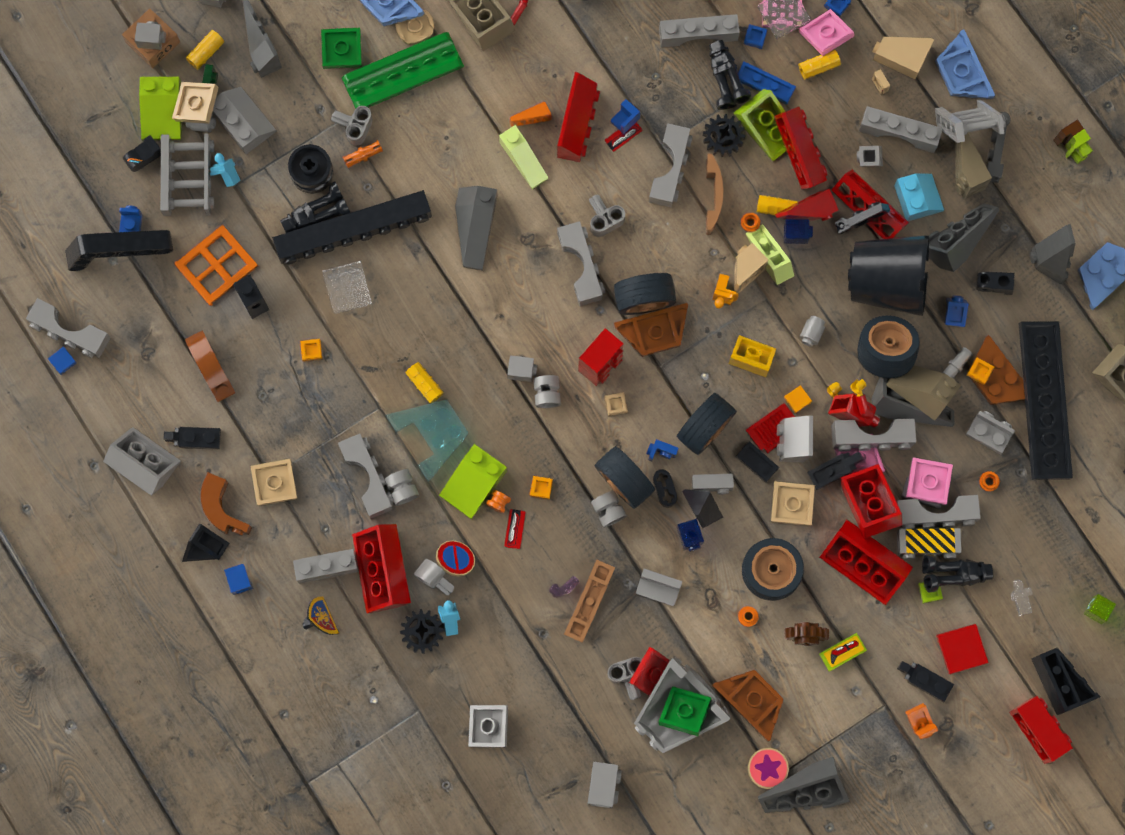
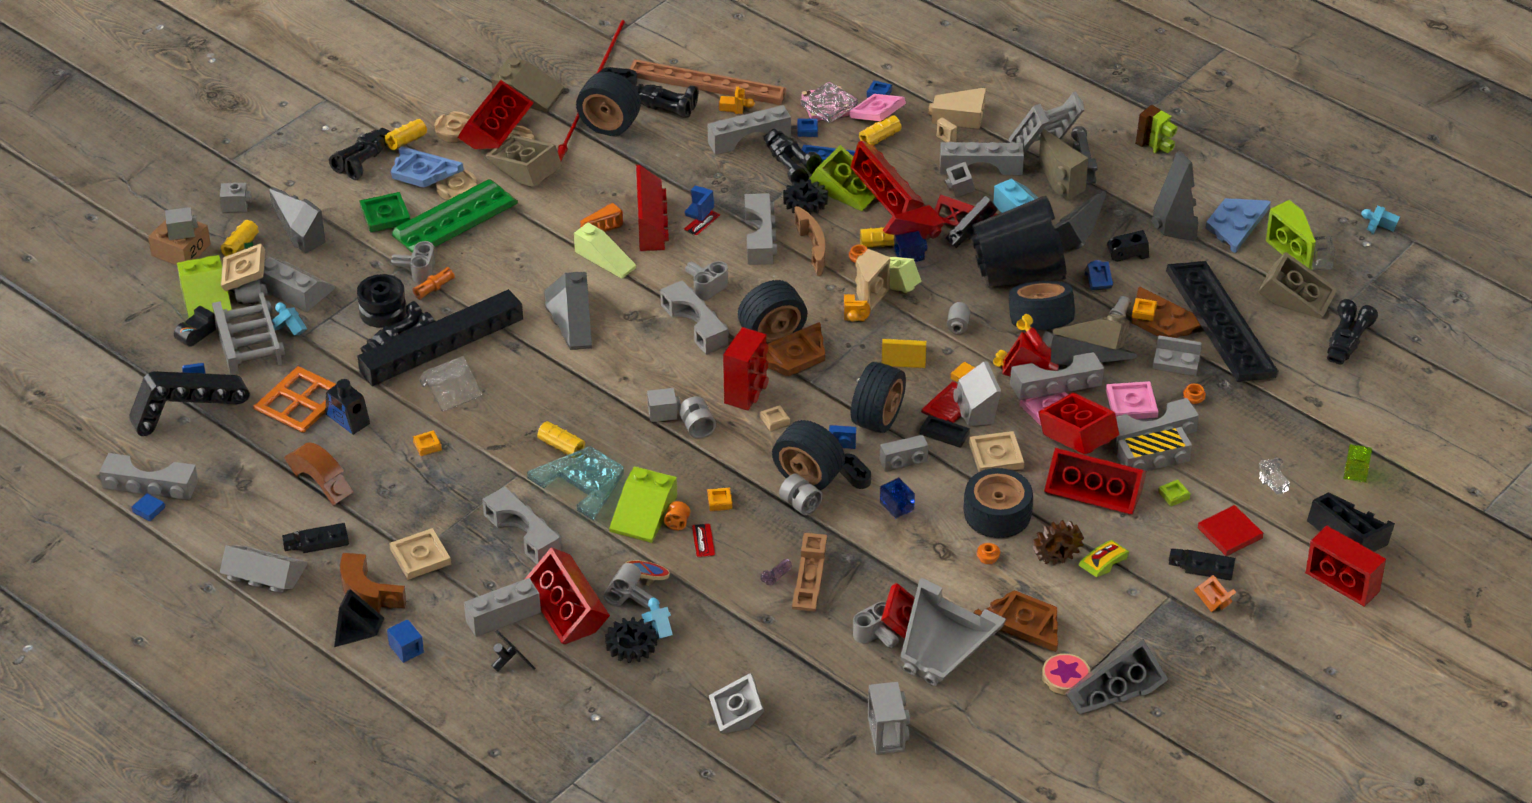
camera: 15 degrees left, 35 degrees down
(401, 486) = (566, 523): light grey wheel -> none
(658, 587) = (881, 547): light grey panel -> none
(685, 711) = (953, 632): green plate -> none
(703, 506) = (899, 465): black slope -> none
(834, 469) = (1027, 413): black hinge -> none
(962, 70) = (1015, 104): medium blue wing -> none
(967, 573) = (1198, 466): black piece -> none

